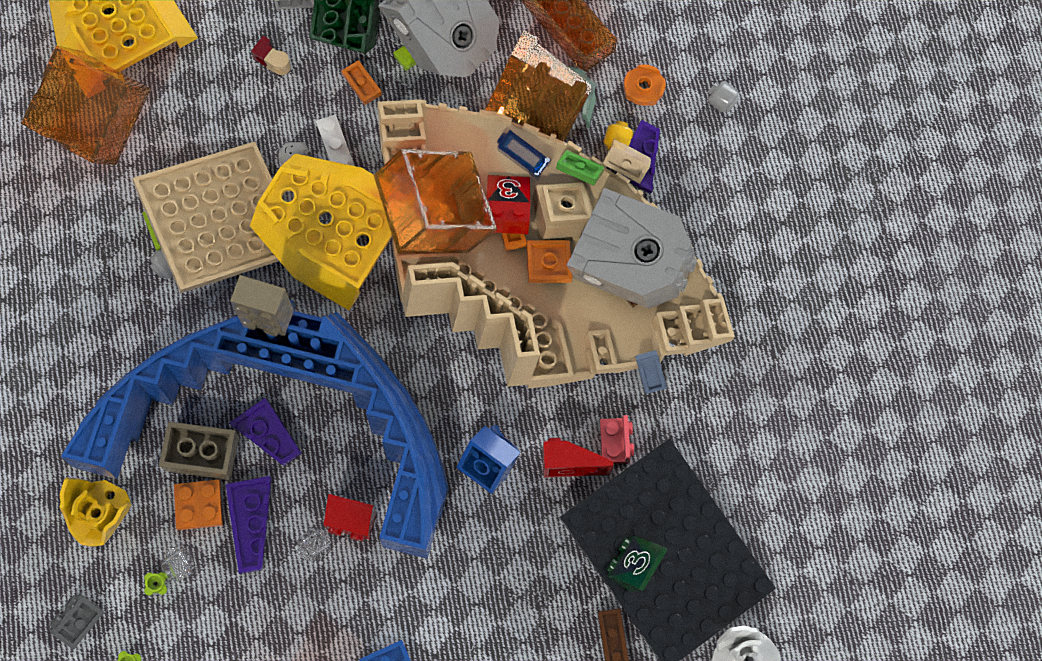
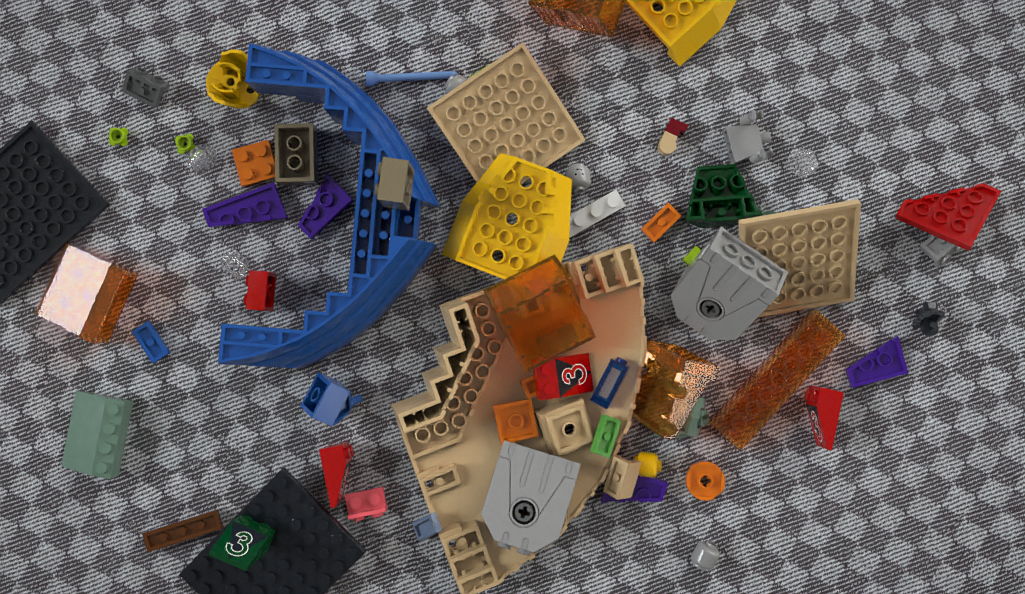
camera: 85 degrees right, 15 degrees up
(131, 354) = (374, 78): none -> medium blue piece

